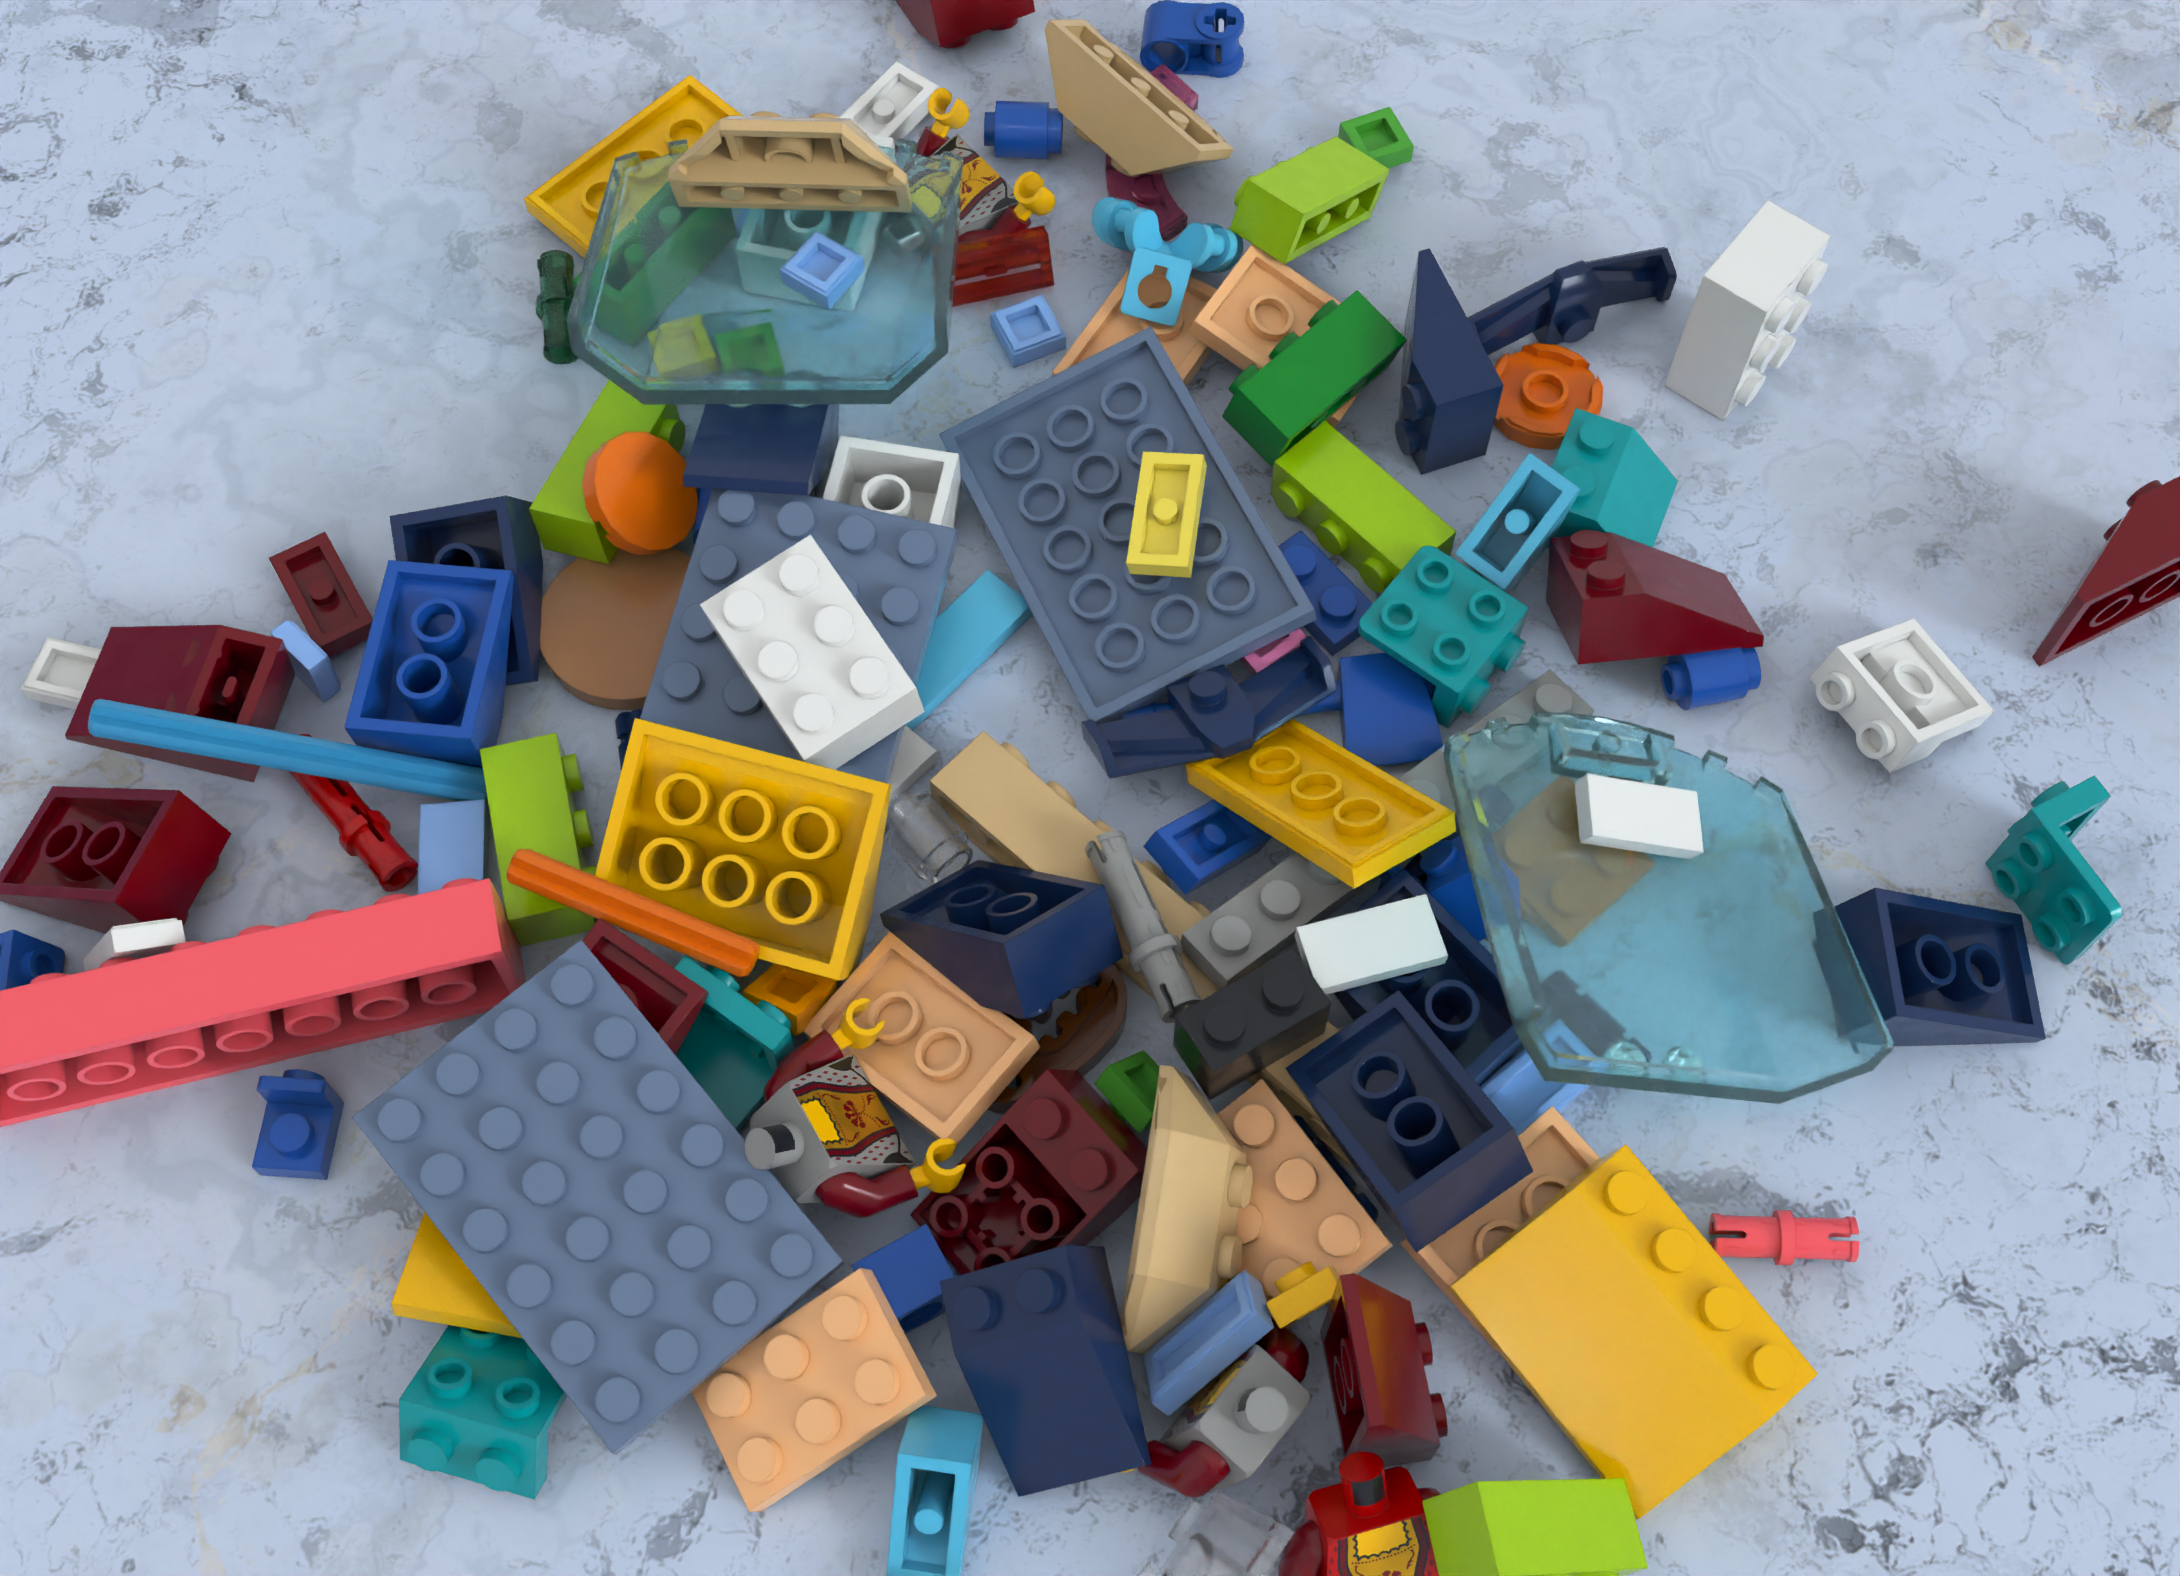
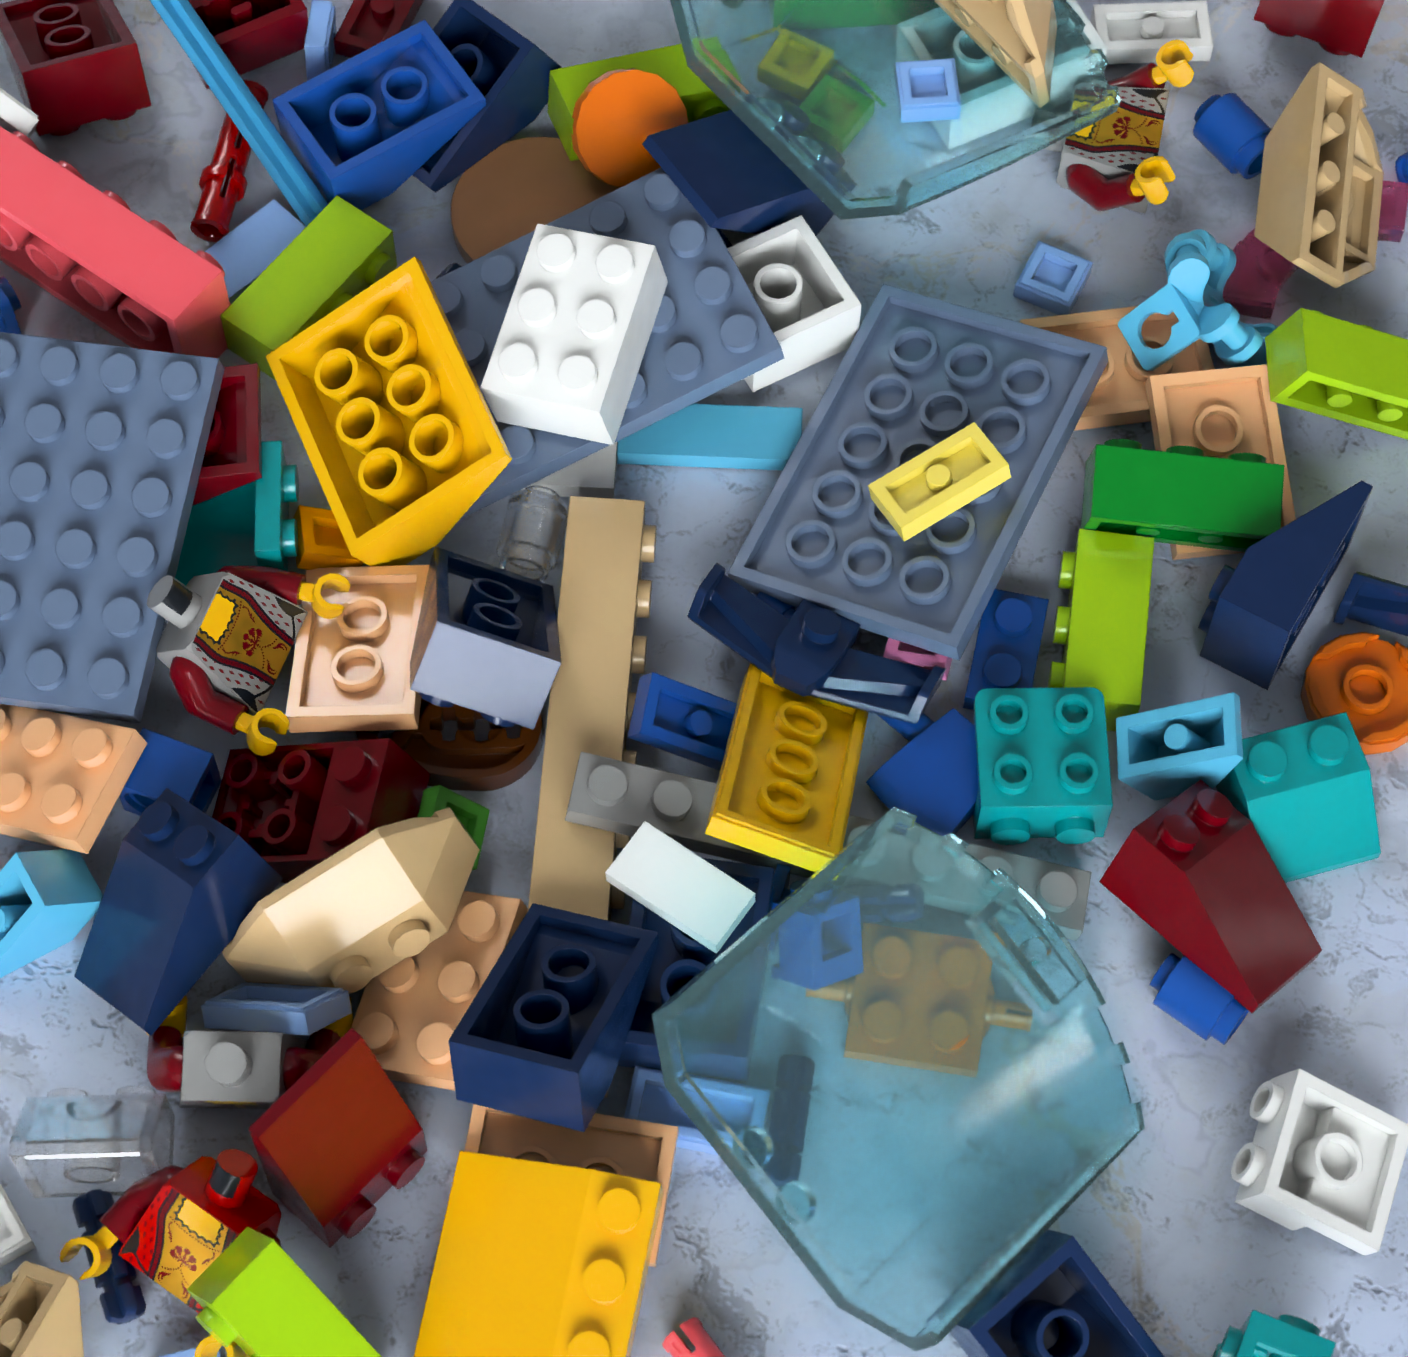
camera: 50 degrees right, 0 degrees up
(633, 912) = (283, 383): orange axle -> none
(996, 256) = (1082, 202): clear red tile -> none
(1154, 950) = (553, 741): light grey pin -> none
(1251, 1023) = (541, 849): black brick -> none
(1302, 1293) = (374, 1034): yellow plate -> none
(1638, 816) = (991, 1019): white tile -> none

